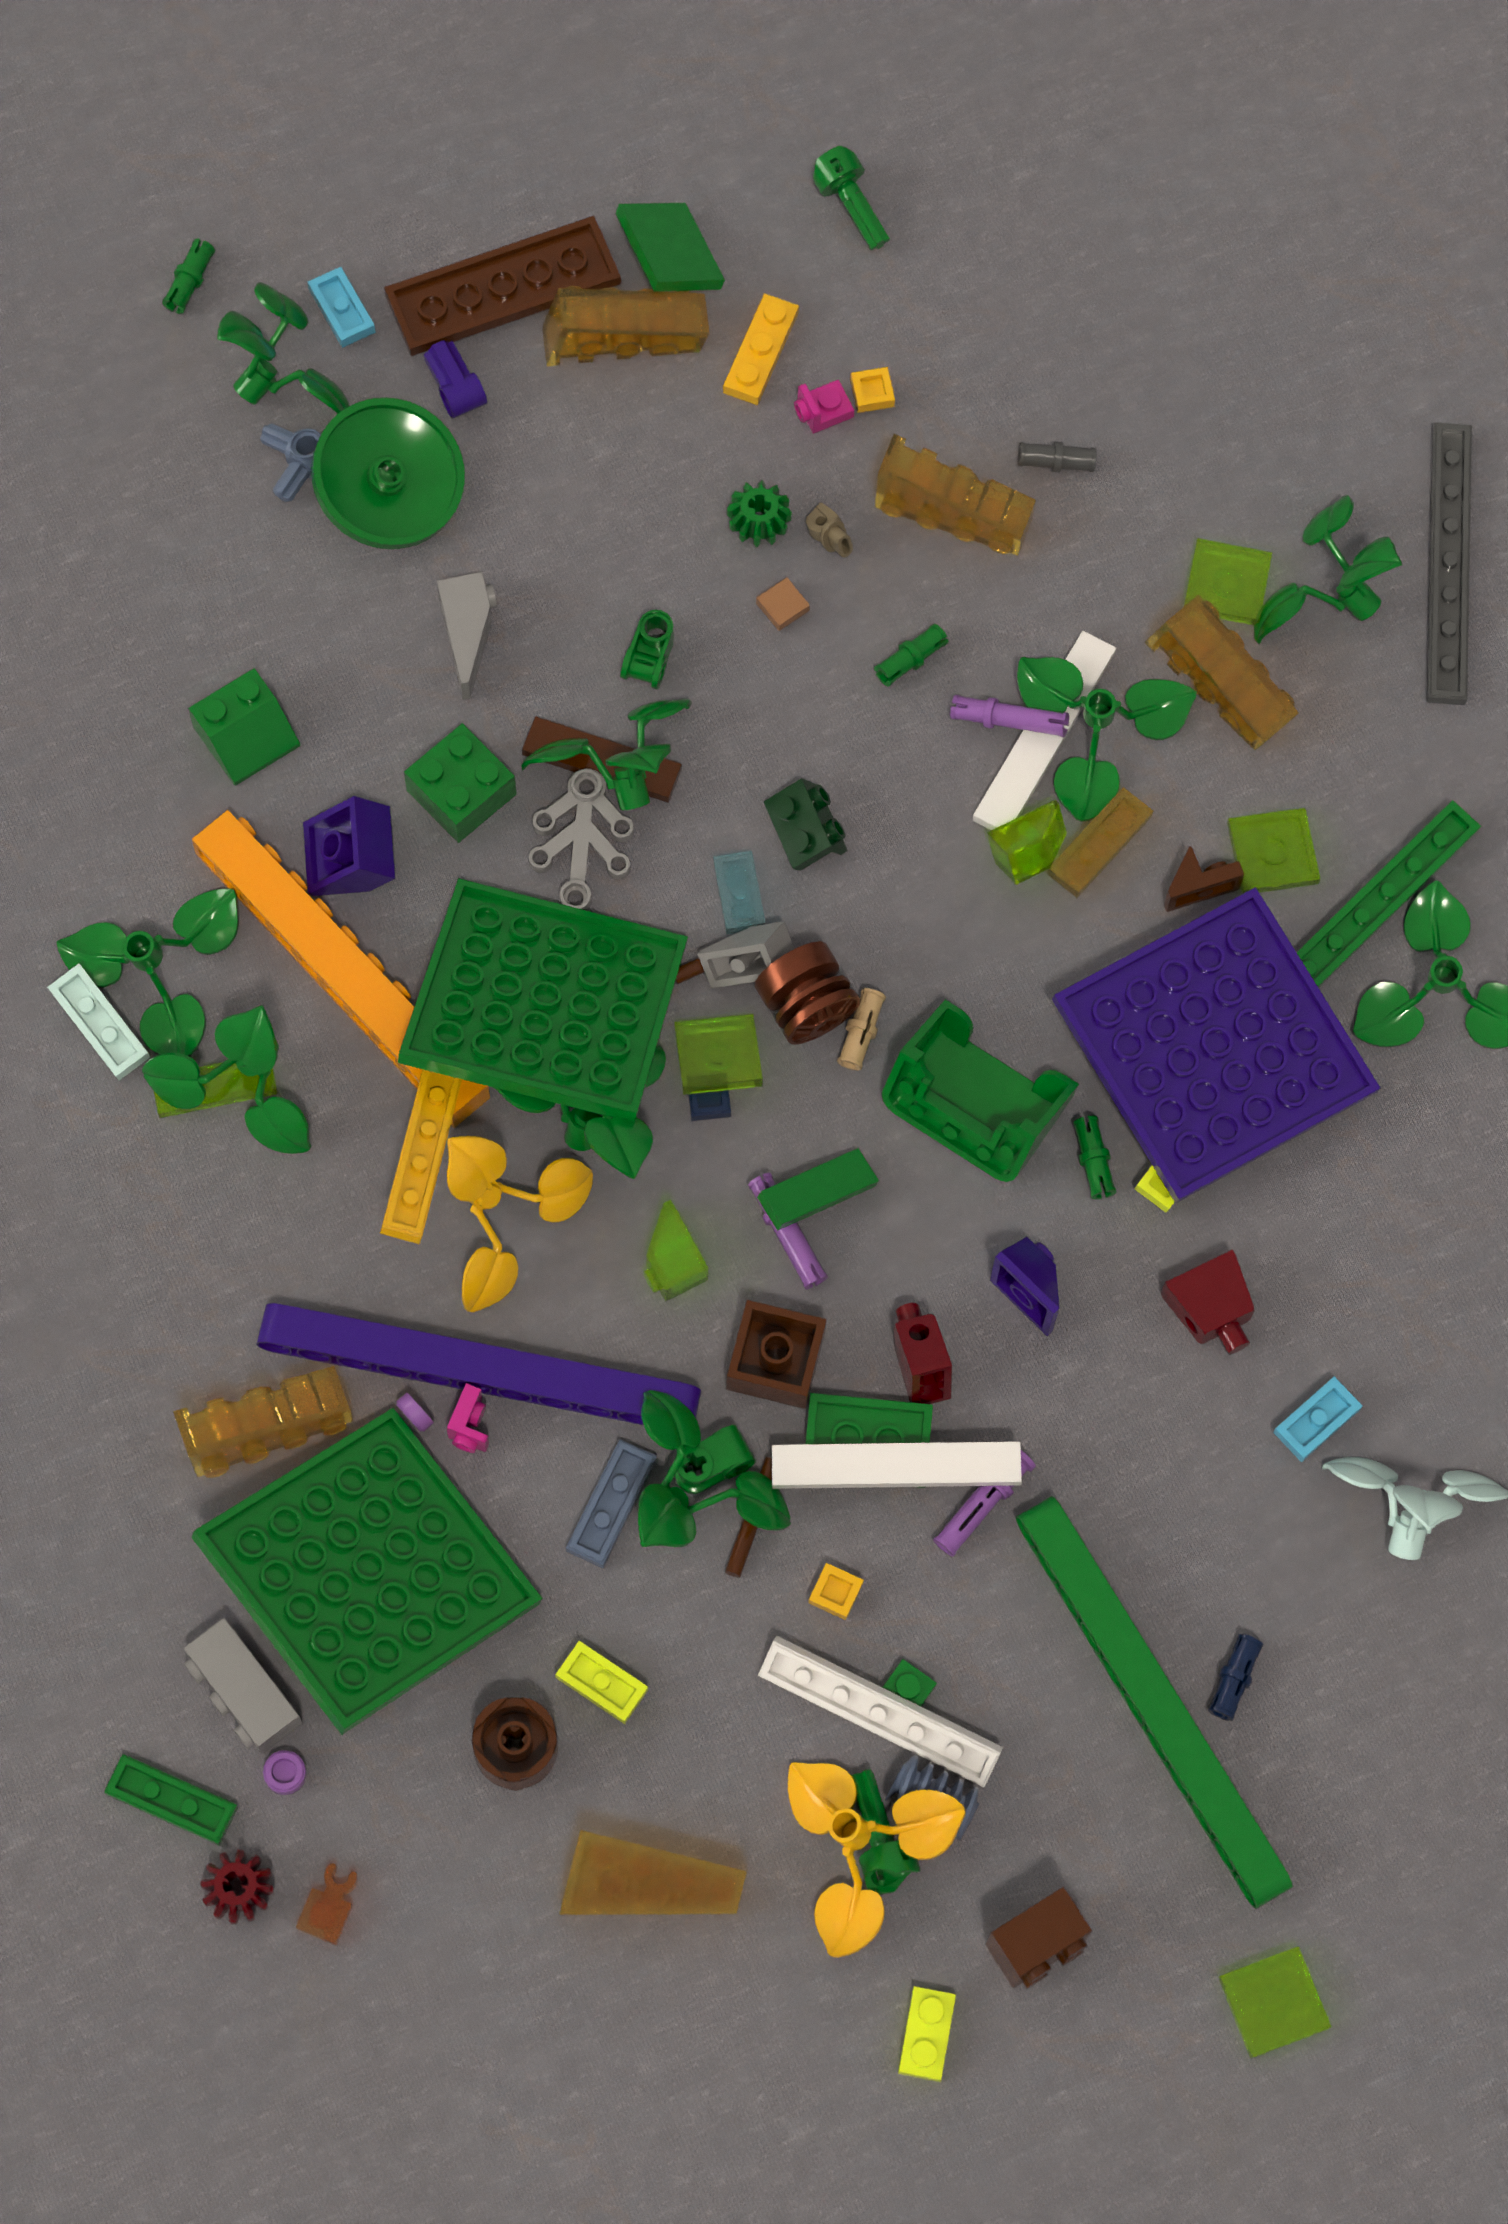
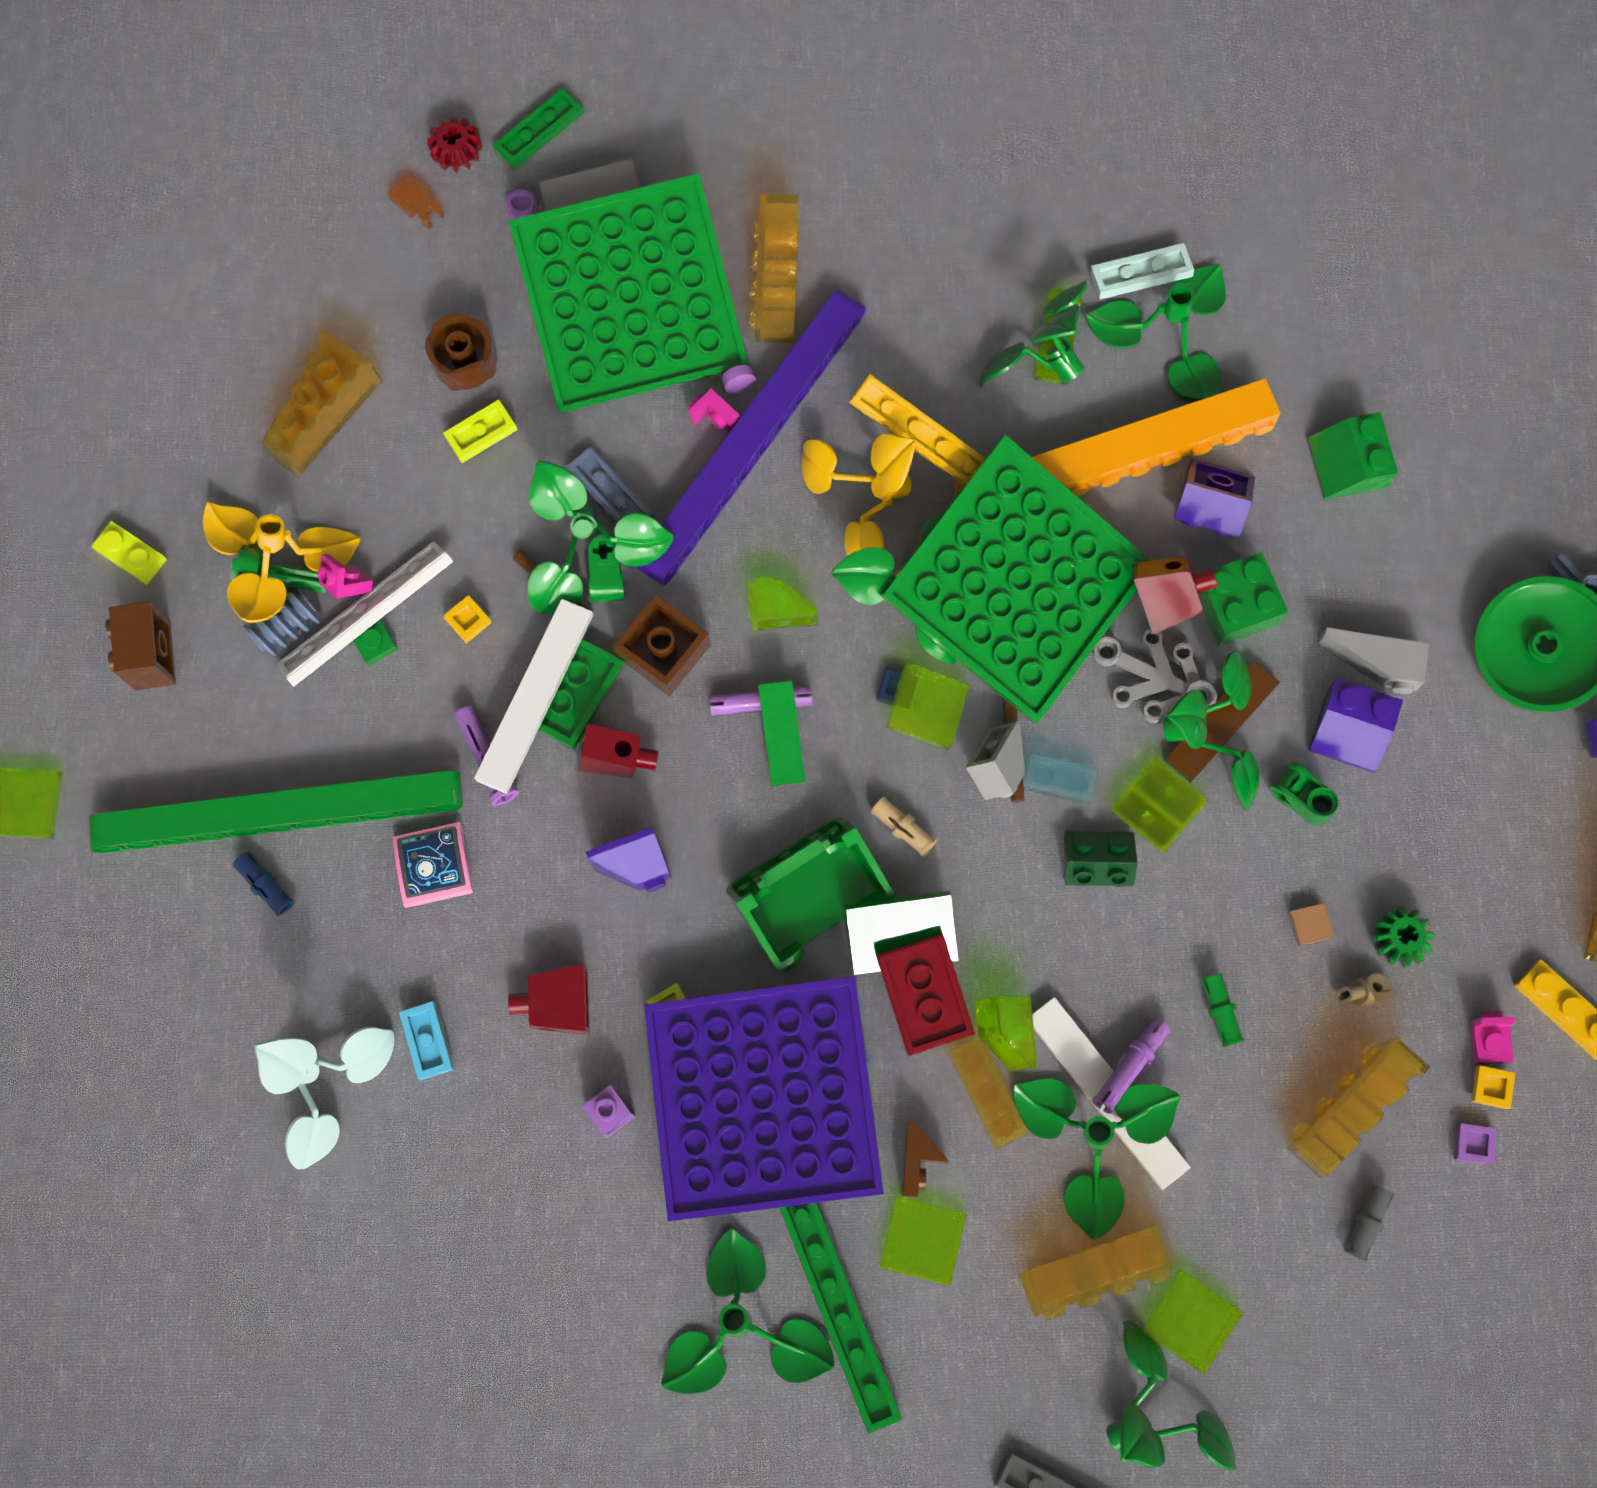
camera: 120 degrees right, 5 degrees up
(487, 844) = (1171, 590): none -> torso
(552, 628) = (1355, 725): none -> dark purple slope
(721, 789) = (1158, 804): none -> clear neon green slope
(807, 992) = (945, 788): copper wheel -> none
(854, 1746) = (342, 579): none -> dark pink bracket
(934, 390) = (1475, 1144): none -> medium lavender tile
(978, 982) = (897, 922): none -> tile
(1030, 937) = (925, 994): none -> dark red tile
(1094, 1157) = (718, 964): green pin -> none
(1129, 1501) = (432, 864): none -> slope
(1300, 1197) = (608, 1111): none -> medium lavender brick

